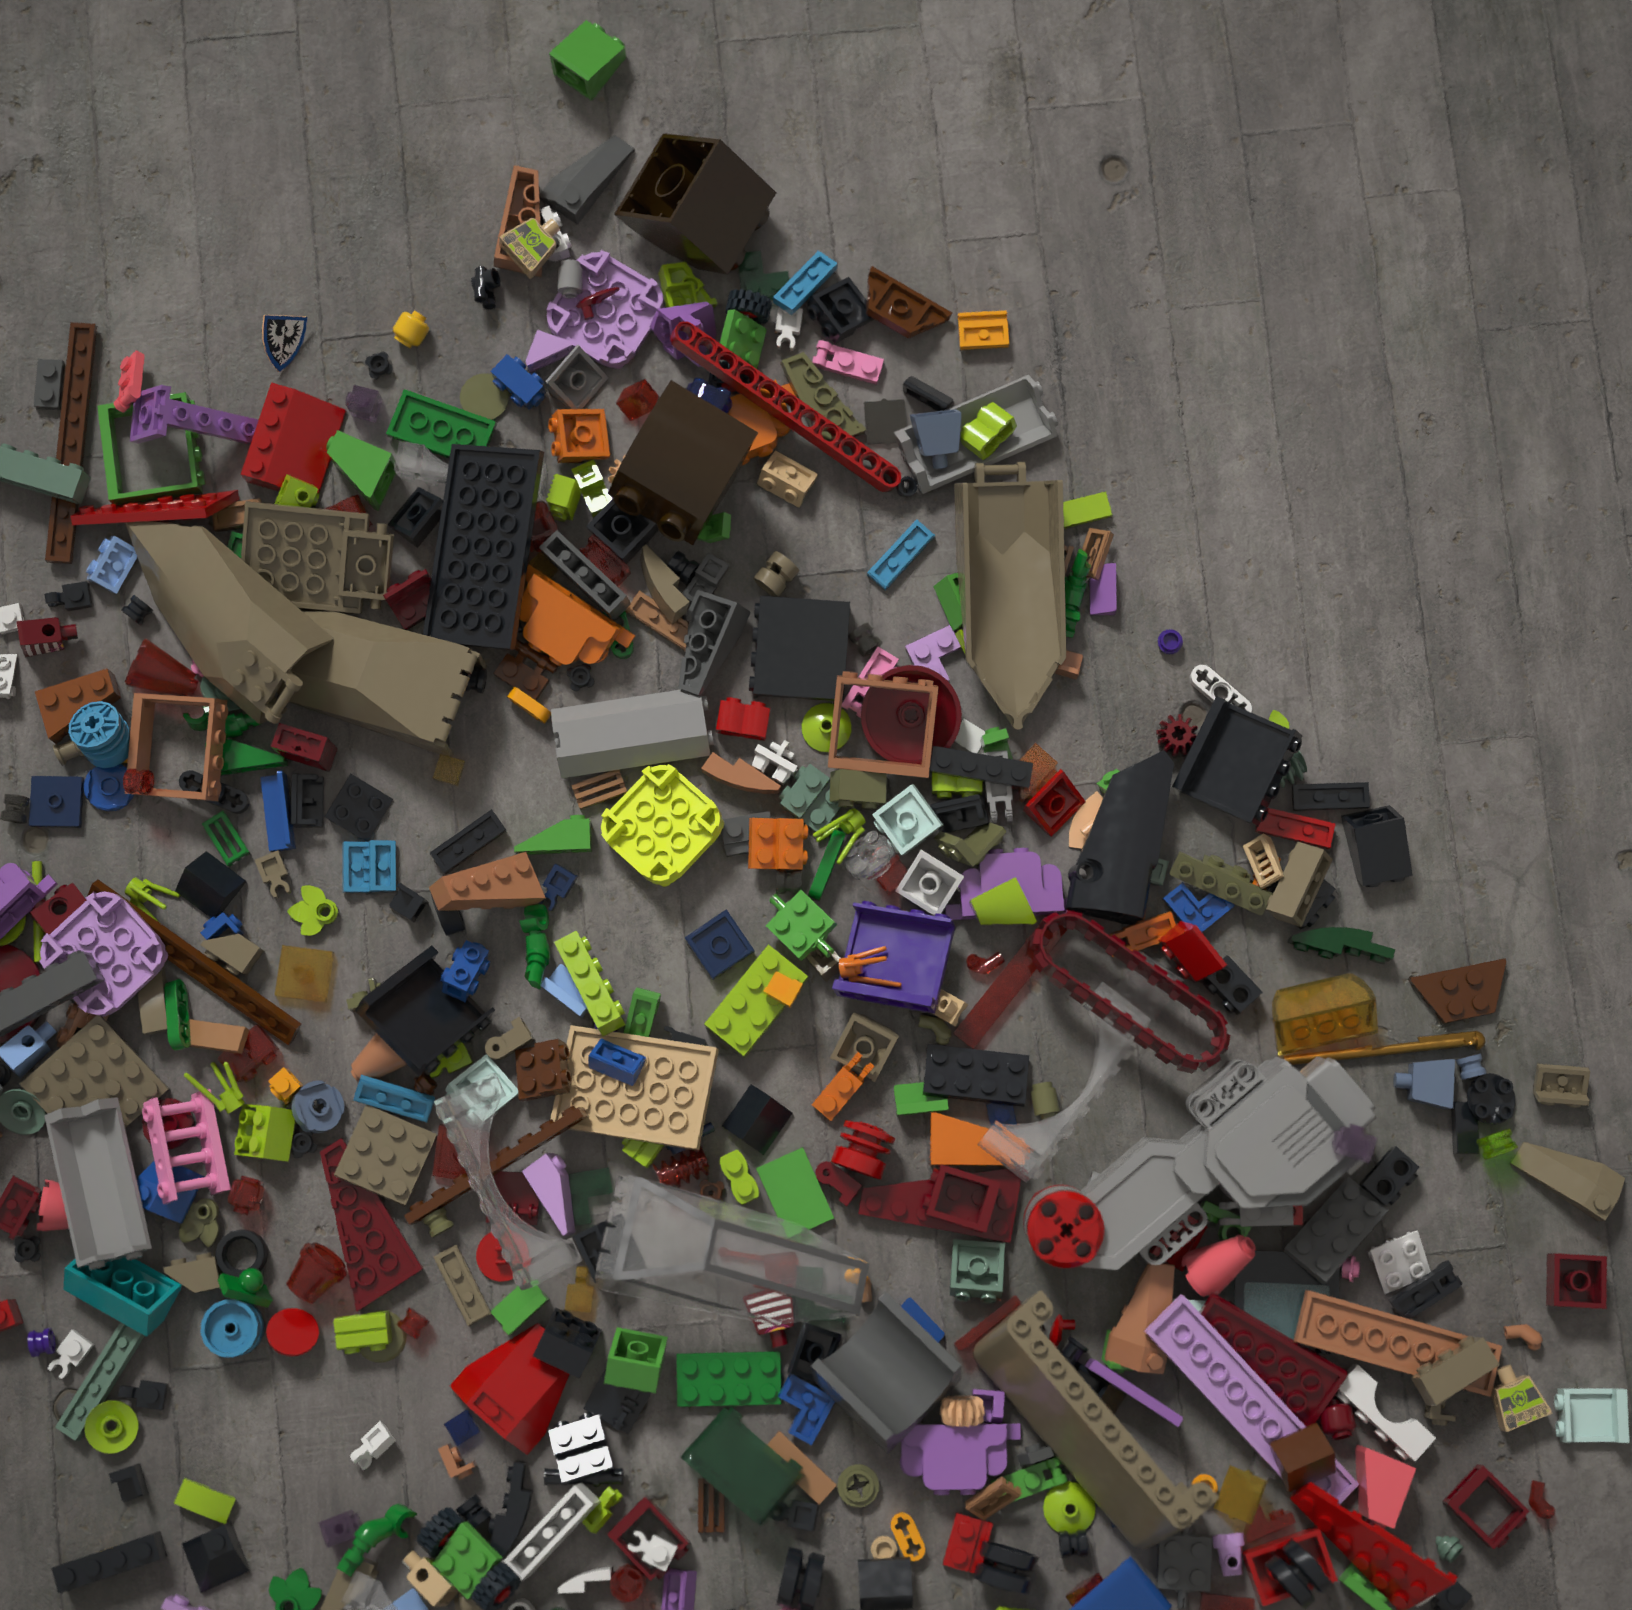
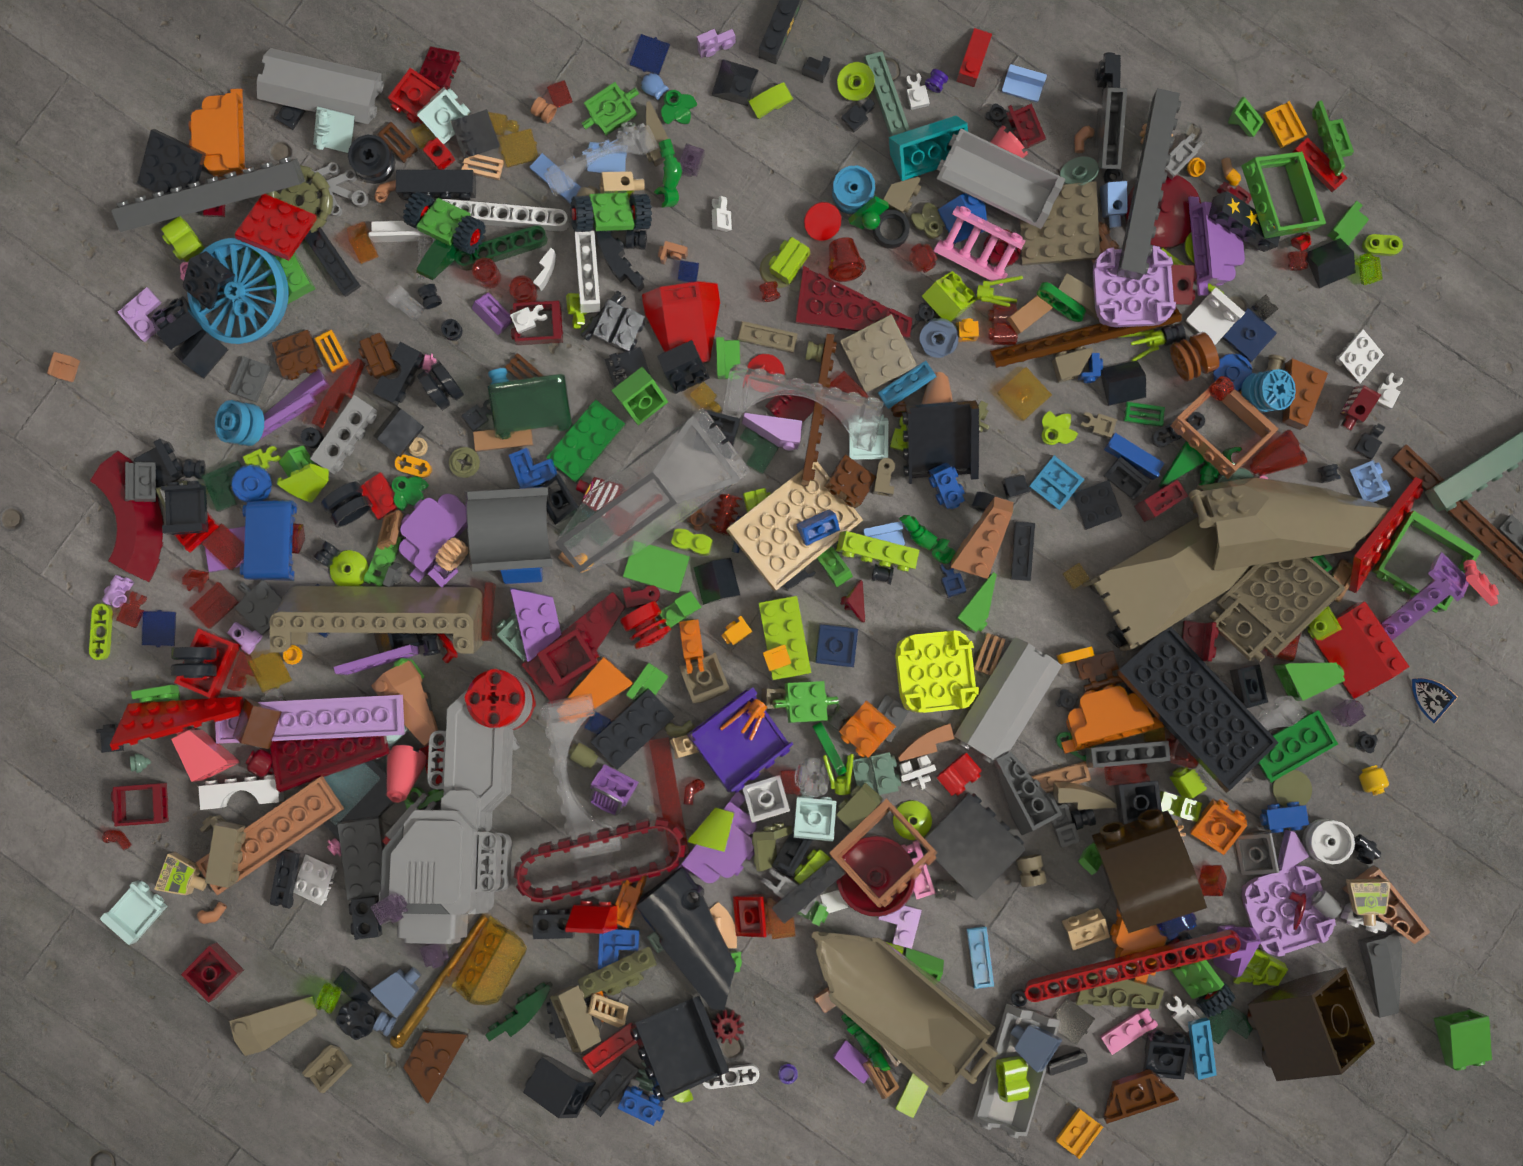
camera: 130 degrees right, 5 degrees up
(65, 850) = (1215, 315): none -> white bracket
(117, 876) = (1173, 333): none -> black wheel
(125, 835) = (1194, 356): none -> dark orange wheel
(507, 324) = (1328, 841): none -> white wheel
(609, 959) = (882, 574): none -> black bush
(659, 963) = (855, 601): none -> dark red piece
(741, 1527) = (498, 375): none -> dark azure wheel
(791, 1055) = (736, 631): none -> light orange brick
(817, 1131) = (680, 609): none -> bright green slope
(937, 1512) = (411, 493): none -> green plate
(954, 1264) = (535, 620): none -> medium lavender wing
(1053, 1041) = (611, 790): none -> medium lavender piece
(1322, 752) = (641, 1105): none -> blue brick
(1365, 1075) = (434, 954): none -> clear purple brick

